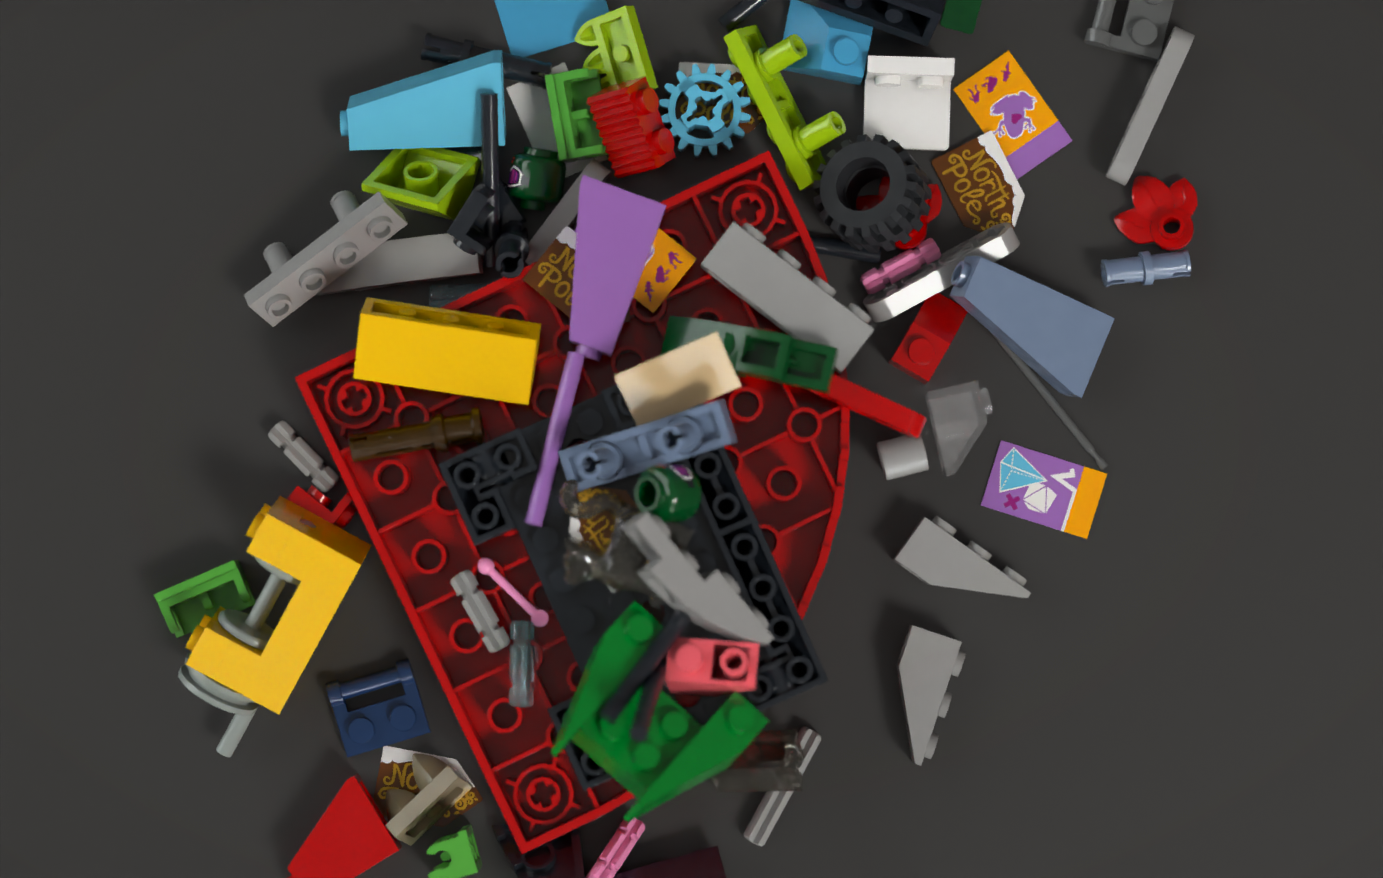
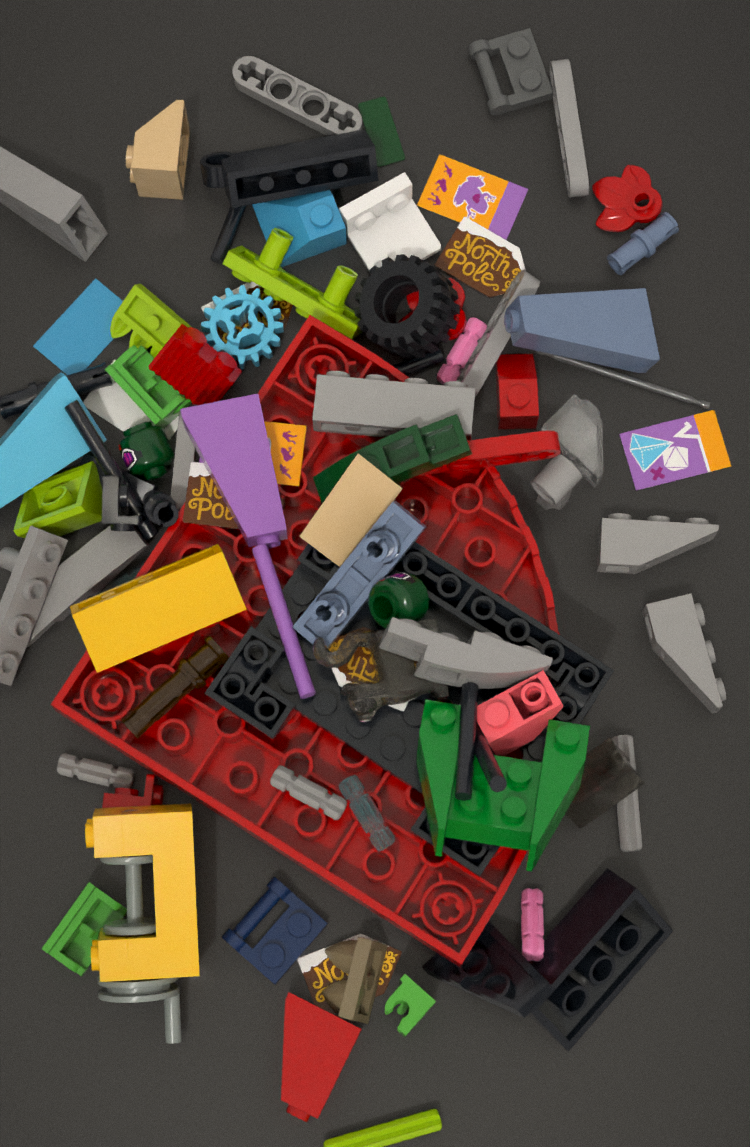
camera: 25 degrees left, 10 degrees down
(538, 617) = (357, 768): bright pink hinge -> none

